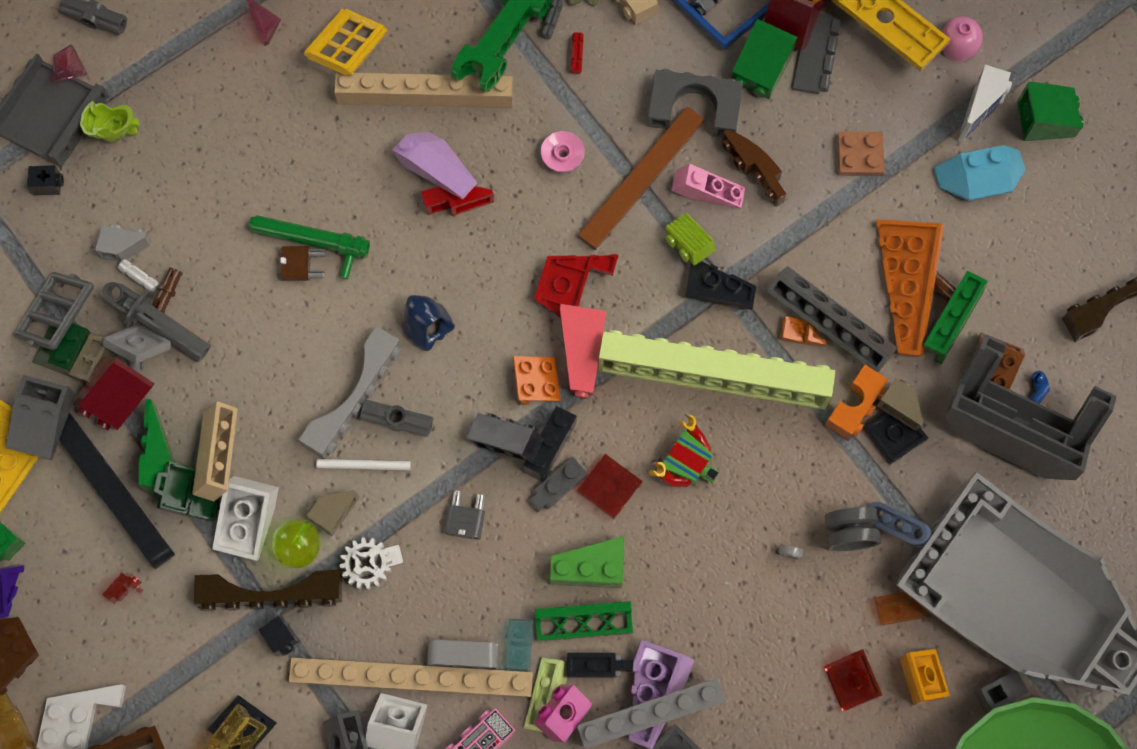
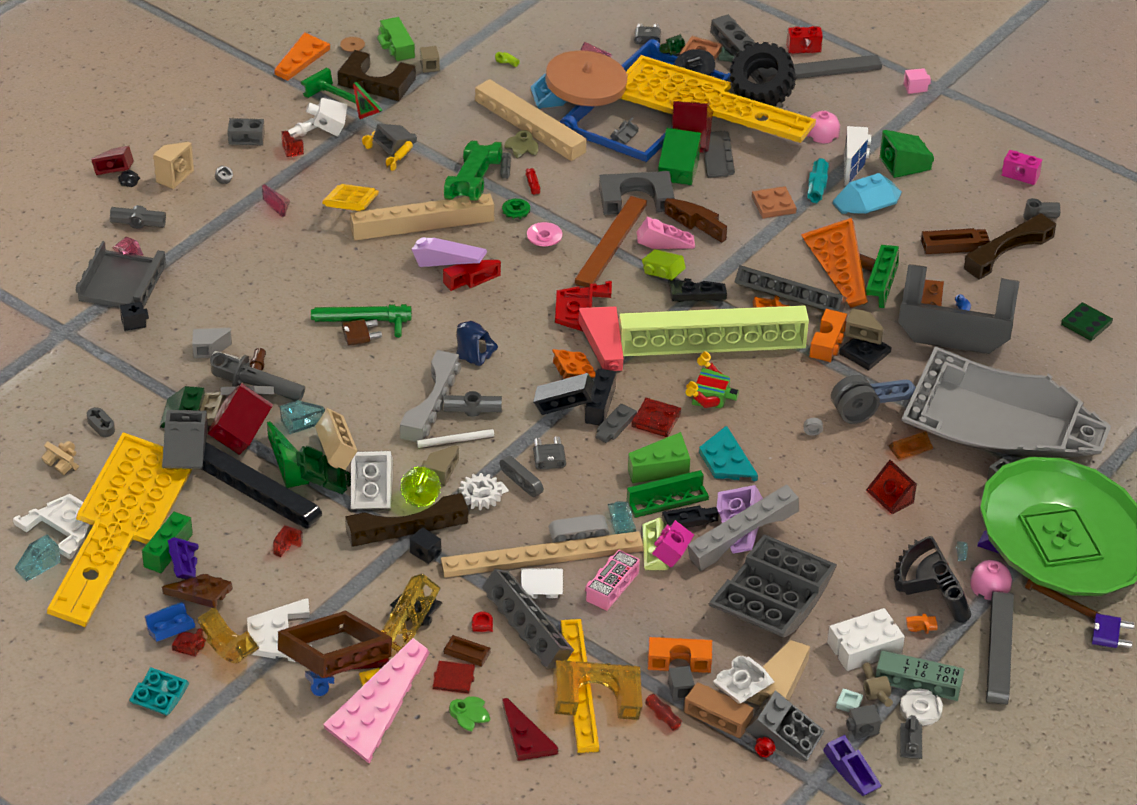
camera: 15 degrees left, 30 degrees down
(61, 325) = (182, 387): dark grey bar -> none
(107, 122) = (178, 273): lime helmet -> none
(191, 390) = (300, 415): none -> clear light blue slope
(421, 549) = (521, 476): none -> dark grey beam
(546, 88) = (522, 205): none -> green gear
(672, 572) = (726, 458): none -> teal wing
(924, 676) = (942, 479): light orange slope -> none
(925, 130) = (818, 180): none -> teal piece
(1053, 272) = (953, 240): none -> reddish brown hinge

